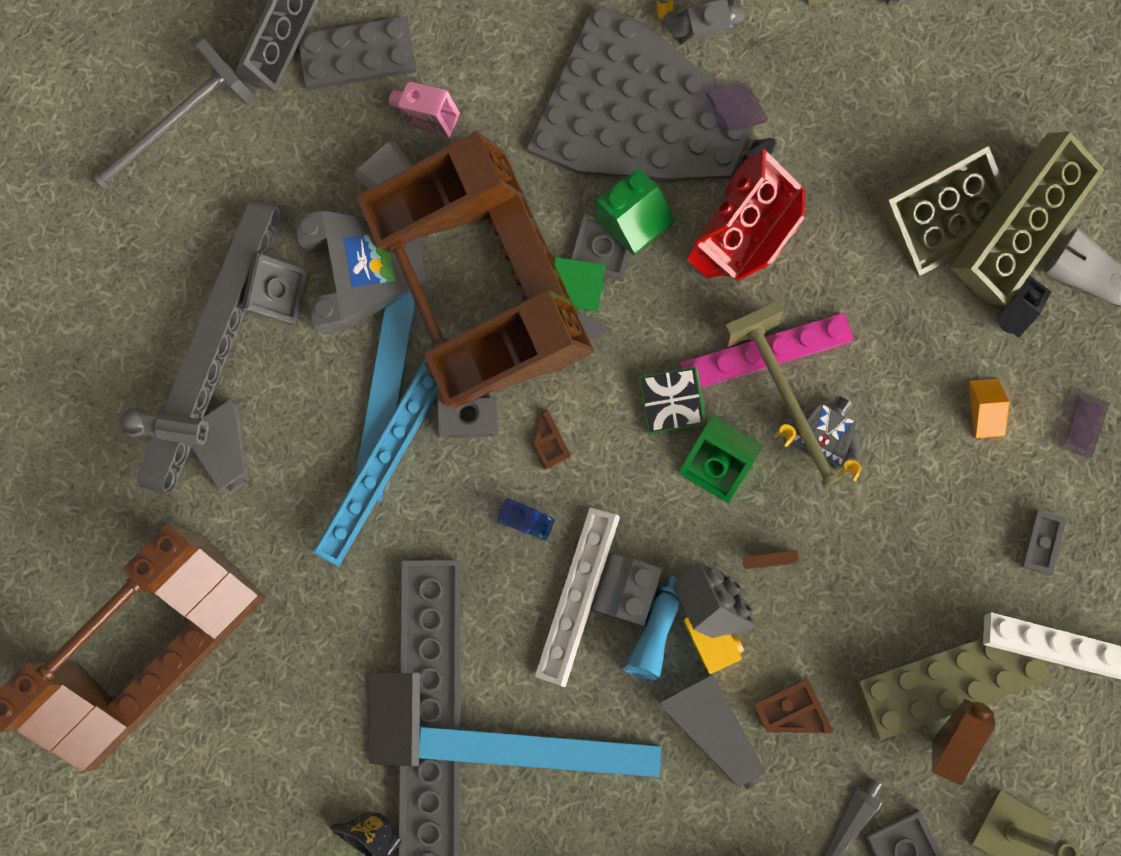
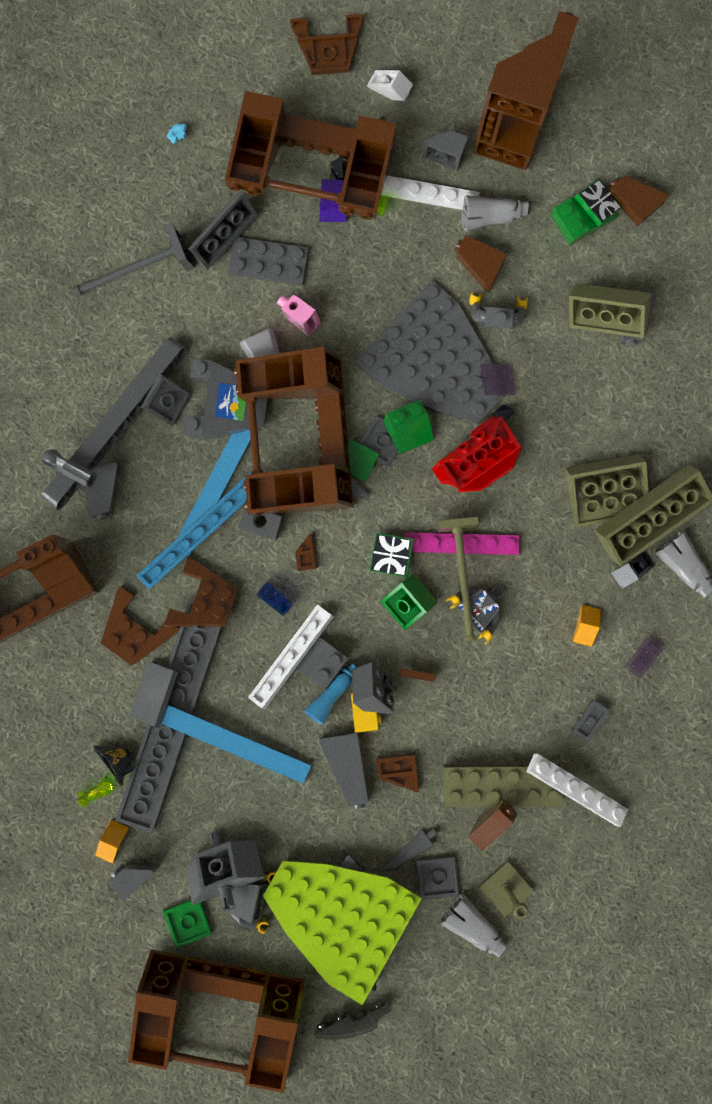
camera: 10 degrees right, 5 degrees up
(329, 648) = (128, 637): none -> reddish brown wing
(435, 555) = (211, 603): none -> reddish brown wing

